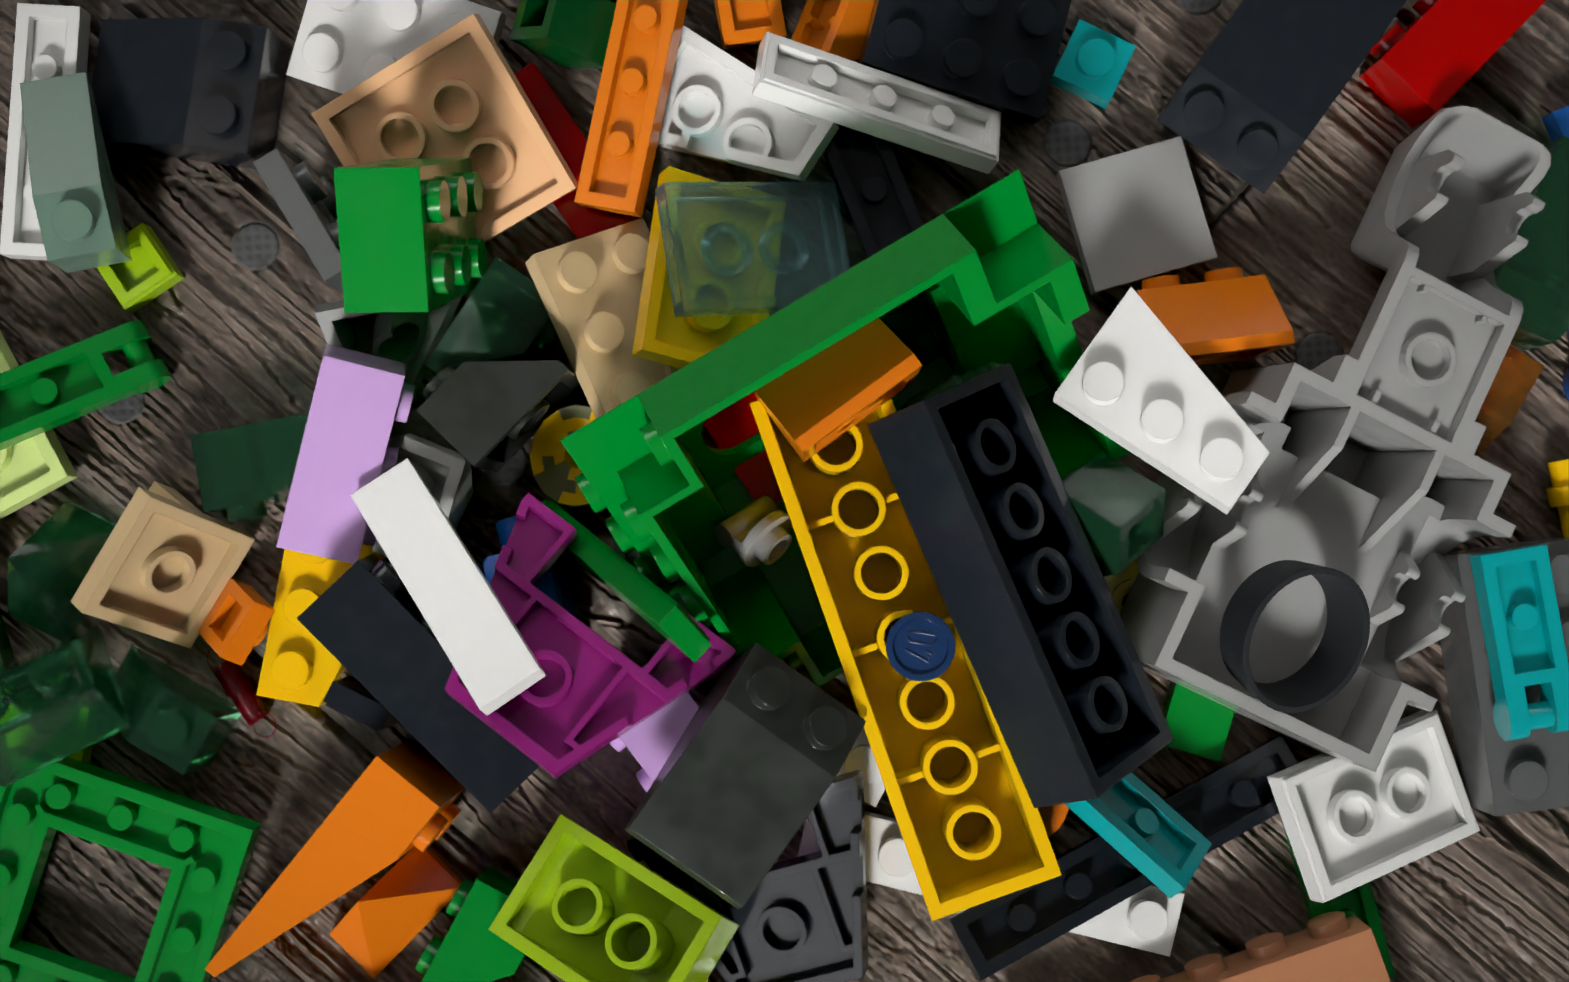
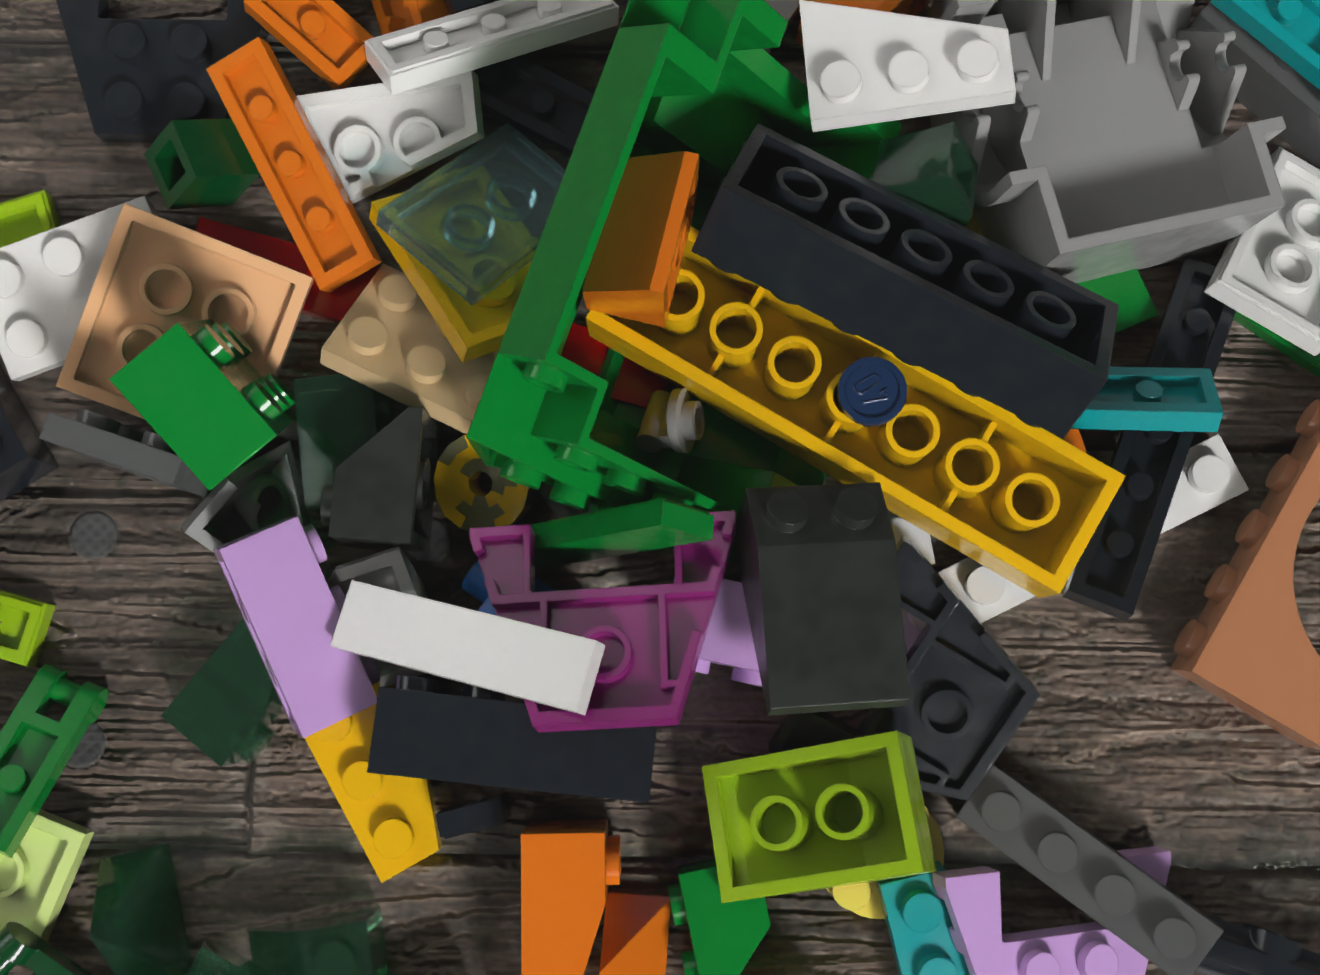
camera: 50 degrees left, 5 degrees down
(162, 567) = (223, 841): tan bracket -> none
(237, 621) = (318, 836): orange plate -> none
(241, 692) = (366, 892): dark red piece -> none
(1334, 659) = (1178, 138): black tyre -> none

